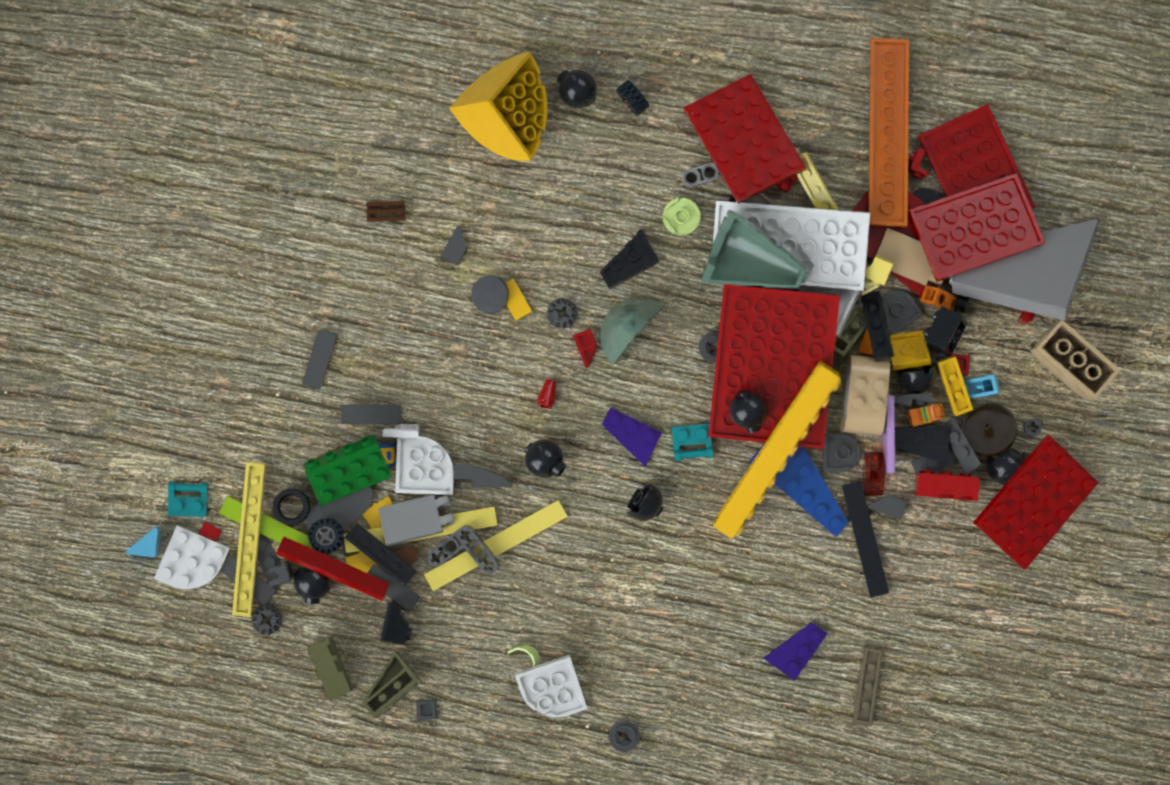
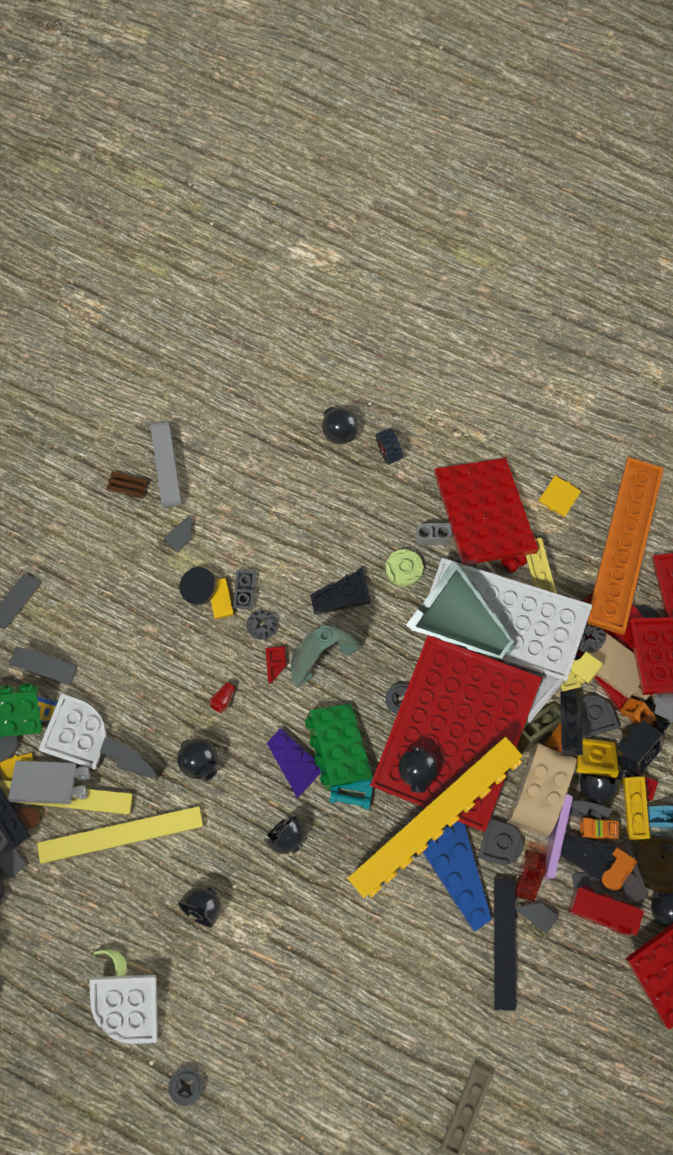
camera: 20 degrees right, 15 degrees down
(403, 430) = (67, 690): white tile -> none
(417, 179) = (166, 464): none -> light grey beam
(463, 543) = (86, 821): dark grey beam -> none
(506, 108) = (268, 423): yellow brick -> none
(535, 284) = (244, 589): none -> dark grey slope
(590, 584) = (202, 905): none -> black cylinder
(668, 409) = (337, 746): none -> green bracket
(797, 650) = (400, 1046): dark purple wing -> none
(813, 97) = (559, 496): none -> yellow piece
(878, 246) = (594, 644): none -> dark grey gear
(915, 160) = (642, 586): red bracket -> none
(951, 448) = (620, 870): none -> orange leg

